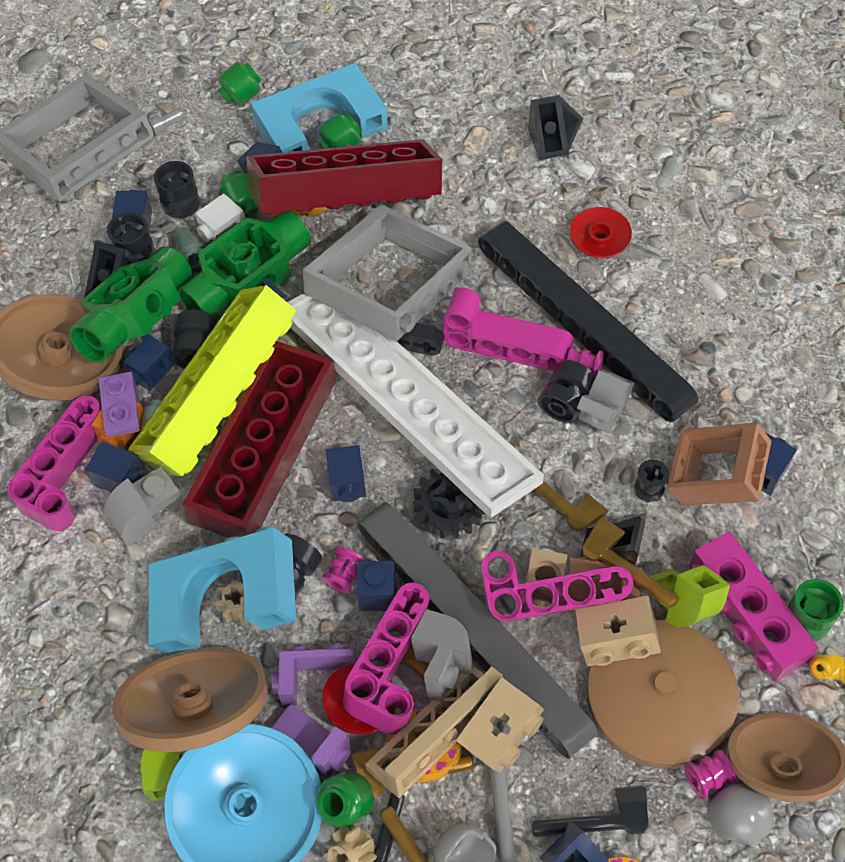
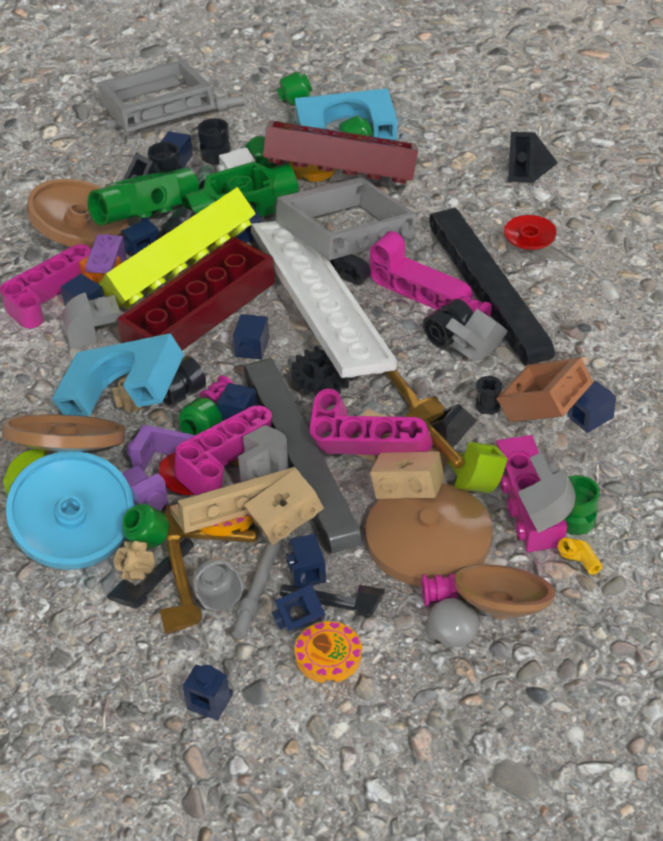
camera: 20 degrees right, 15 degrees down
(337, 615) = (199, 416): none -> green head
(547, 782) = (306, 561): none -> dark blue brick
(803, 626) = (550, 498): none -> light grey brick

